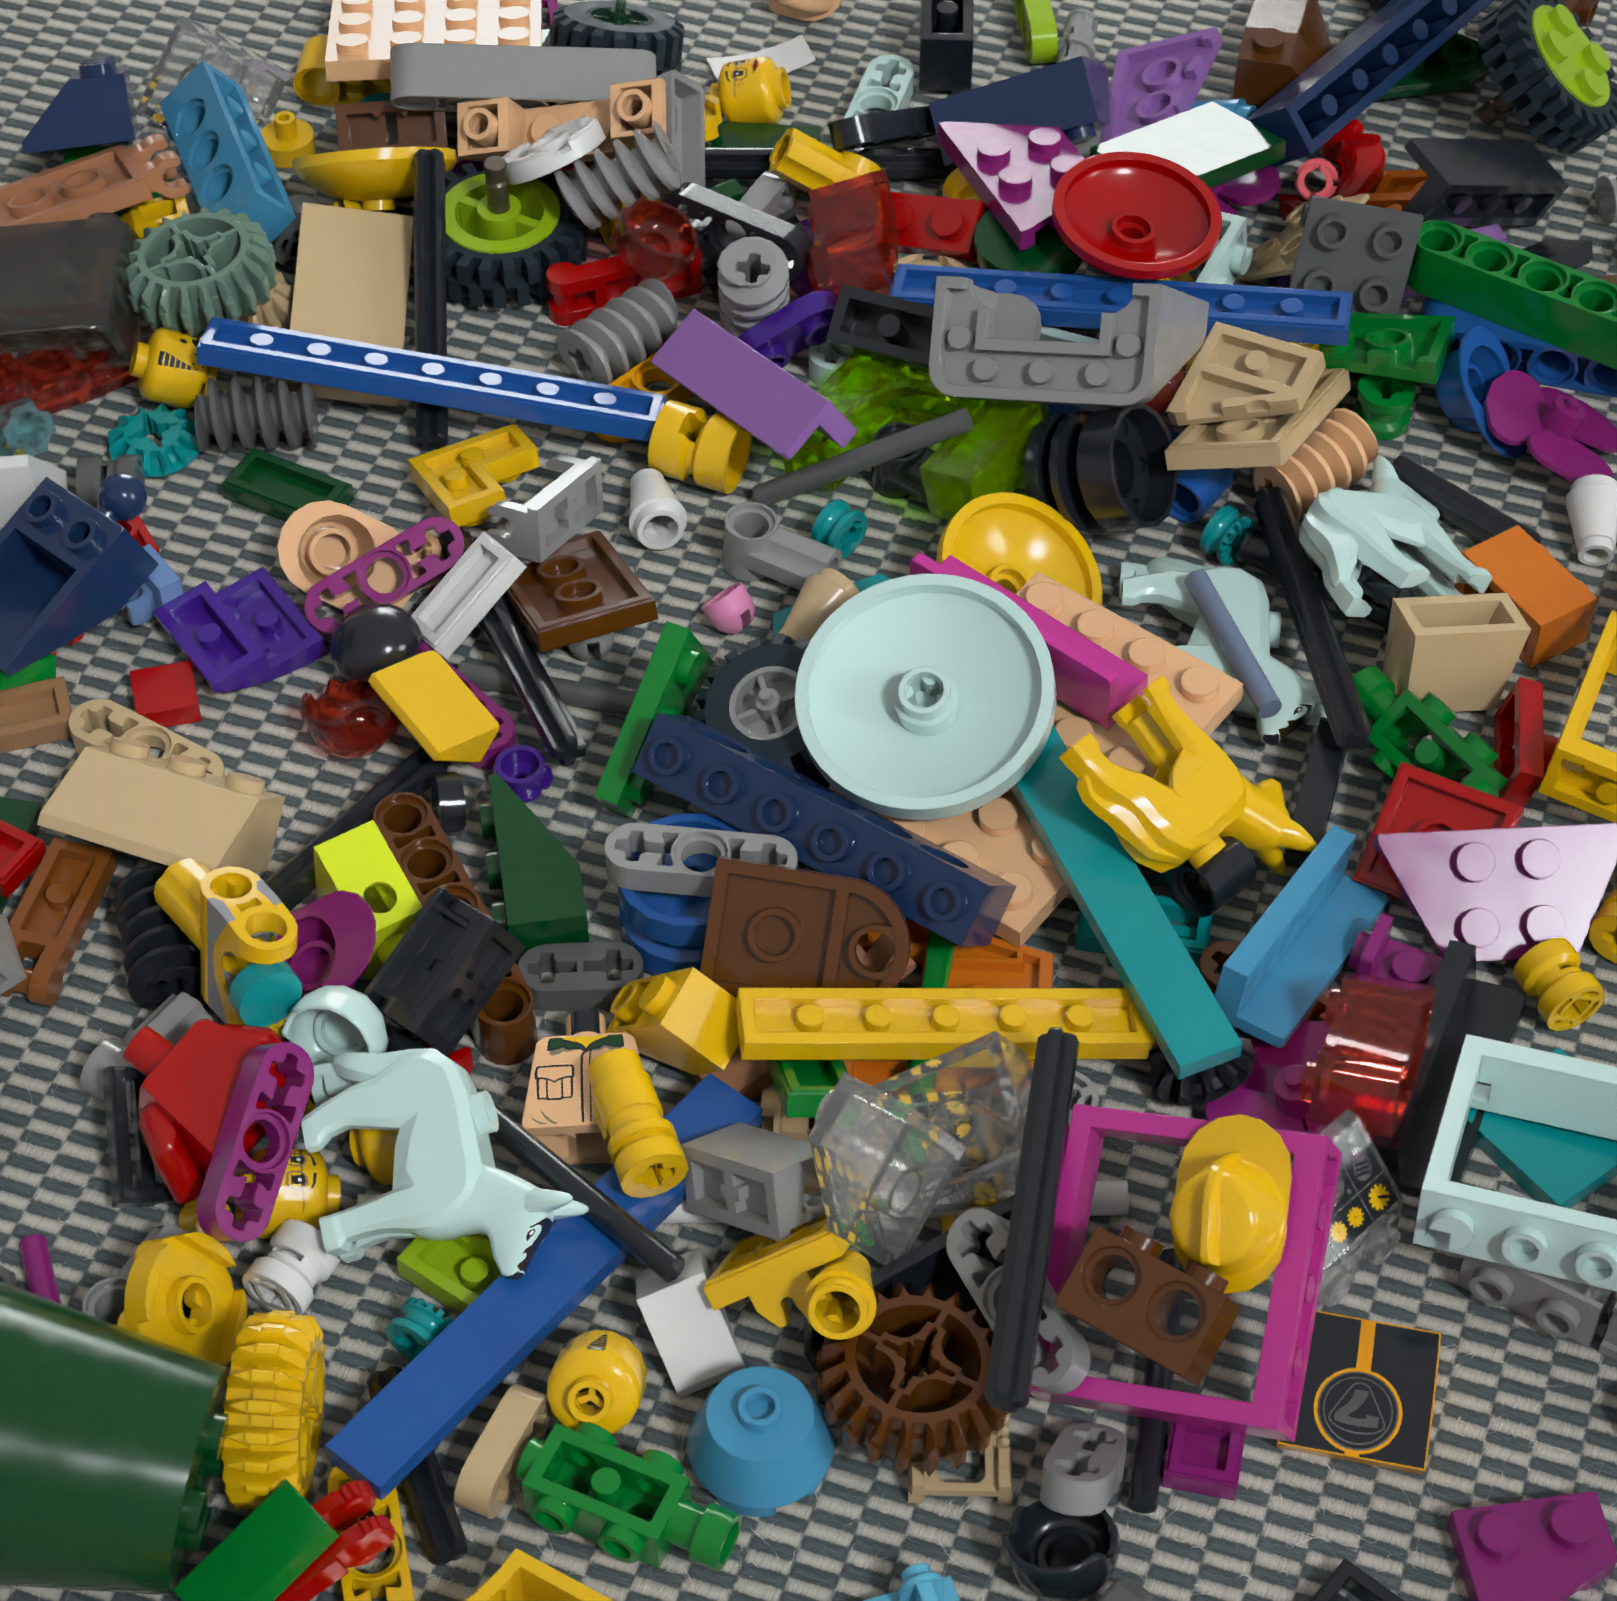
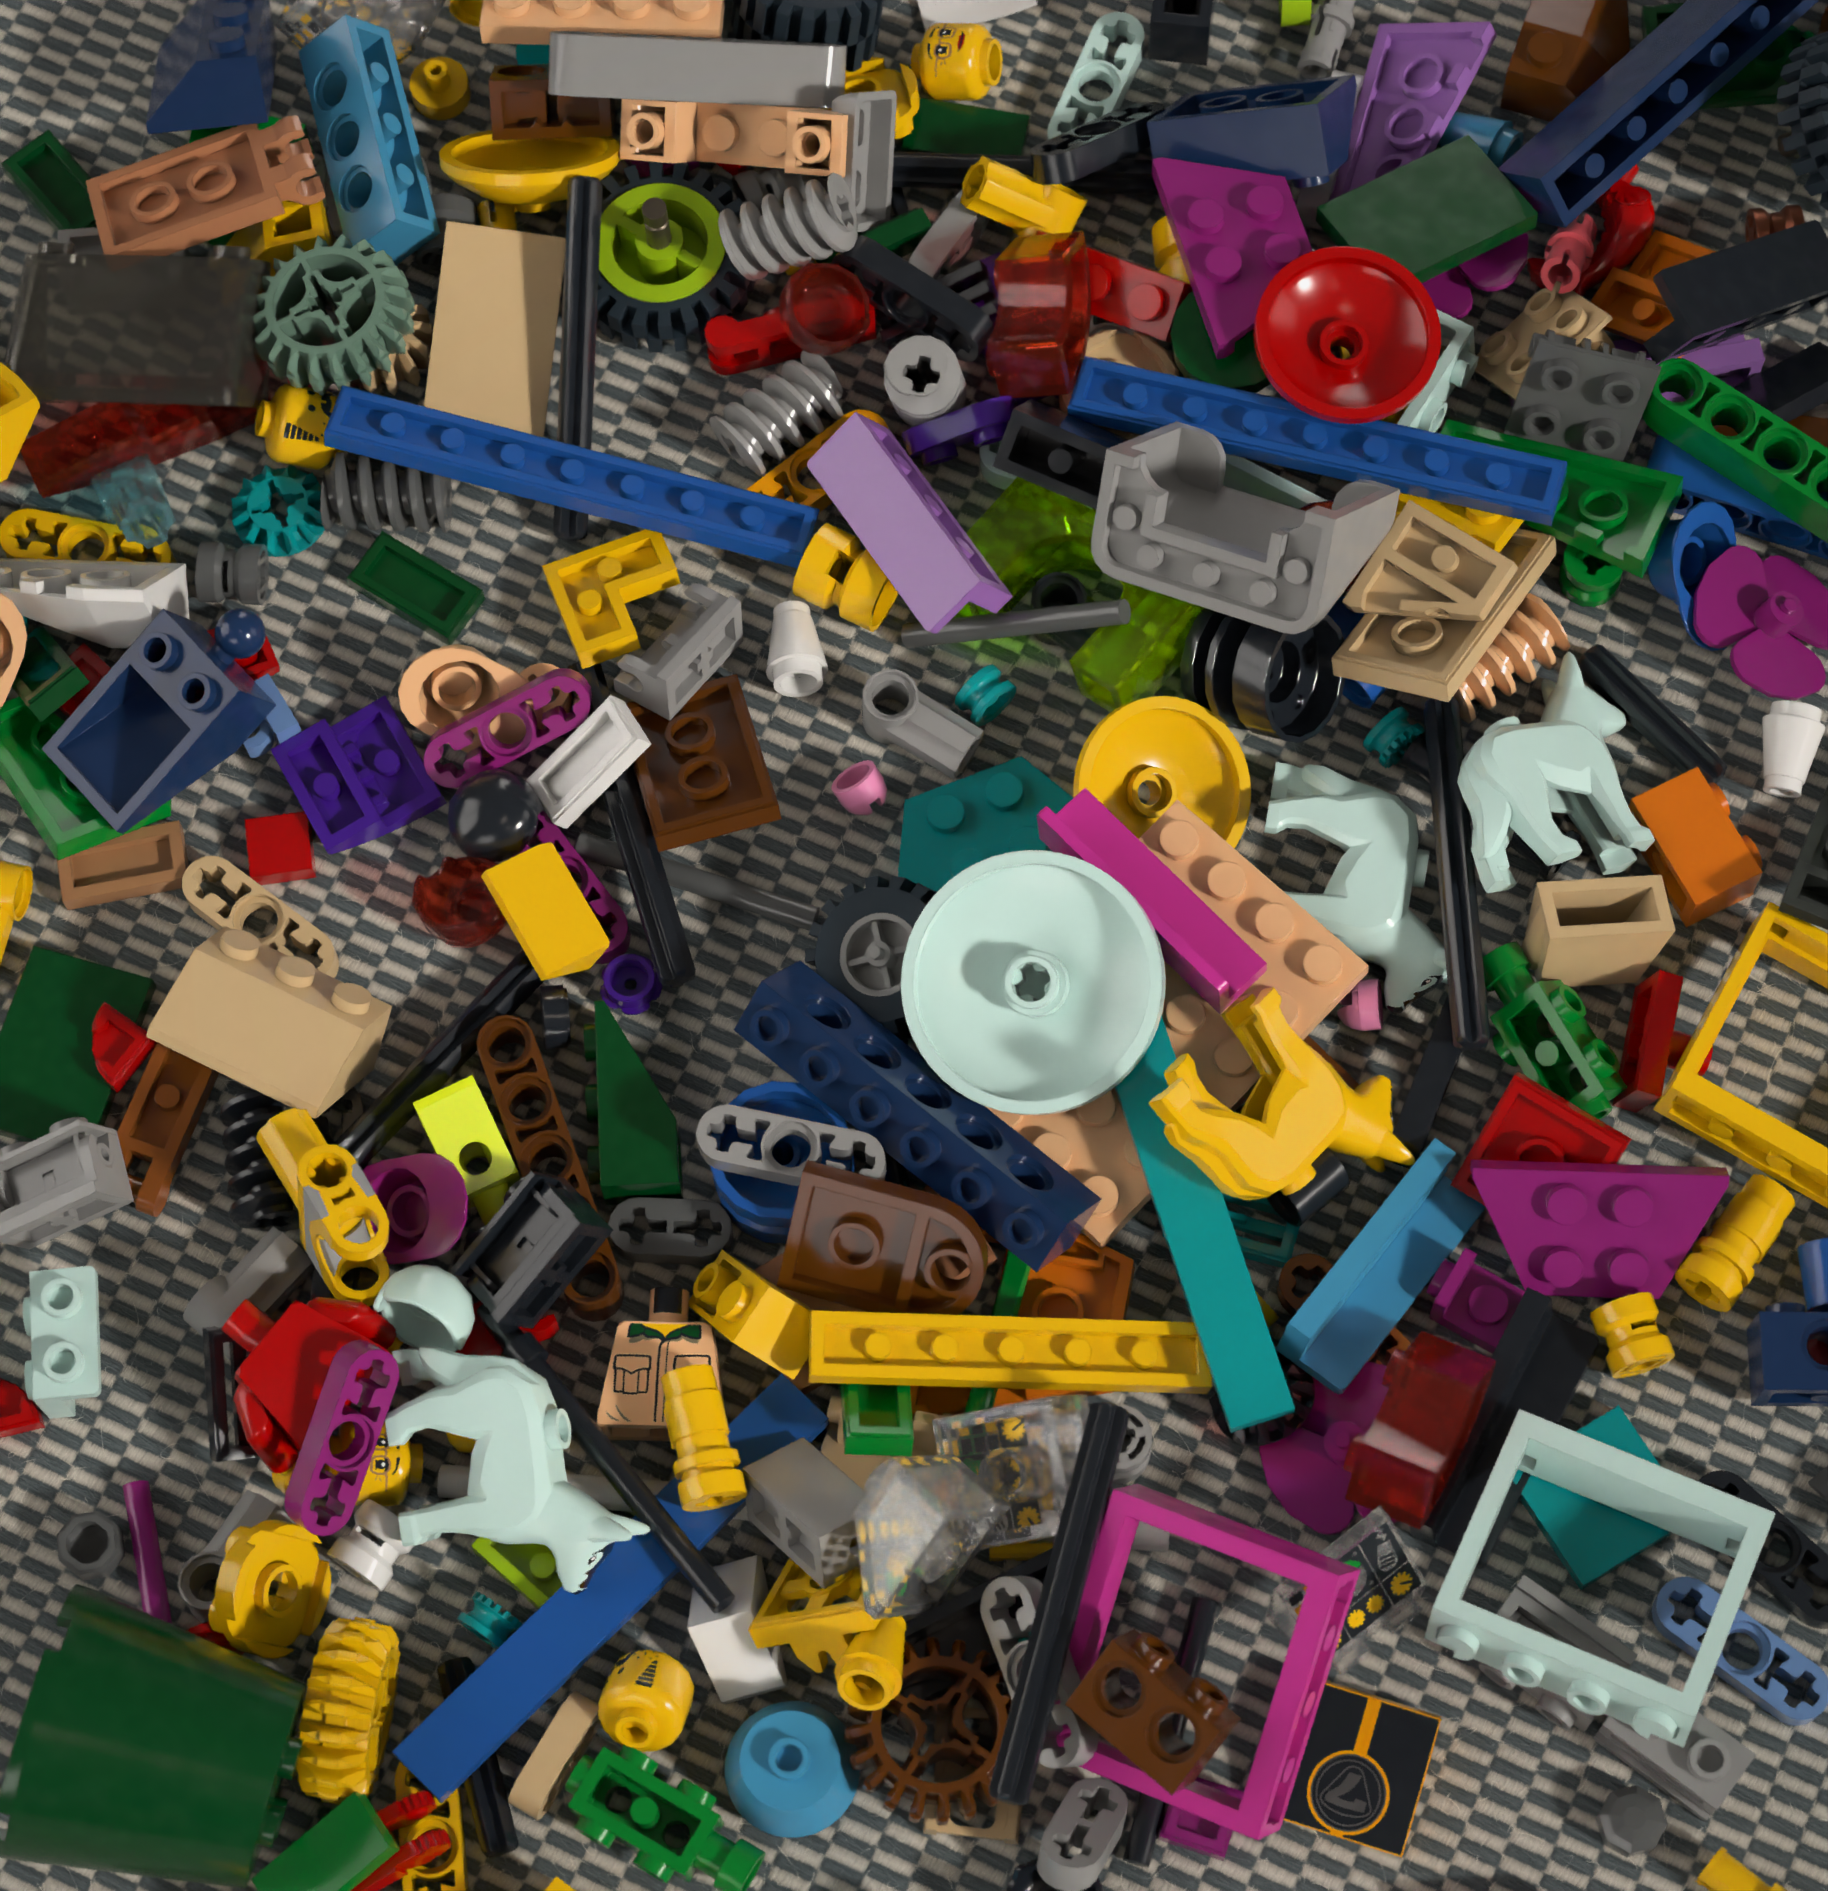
camera: 10 degrees right, 20 degrees up
(265, 993) = (356, 1278): teal tile -> none
(555, 150) = (720, 183): white tile -> none
(667, 687) = (767, 941): green wing -> none
(816, 602) = (946, 823): tan cone -> none
(1233, 644) = (1368, 903): sand blue bar -> none
(1233, 1201) = (1242, 1622): yellow piece -> none
(1238, 740) = (1363, 1006): none -> bright pink hinge

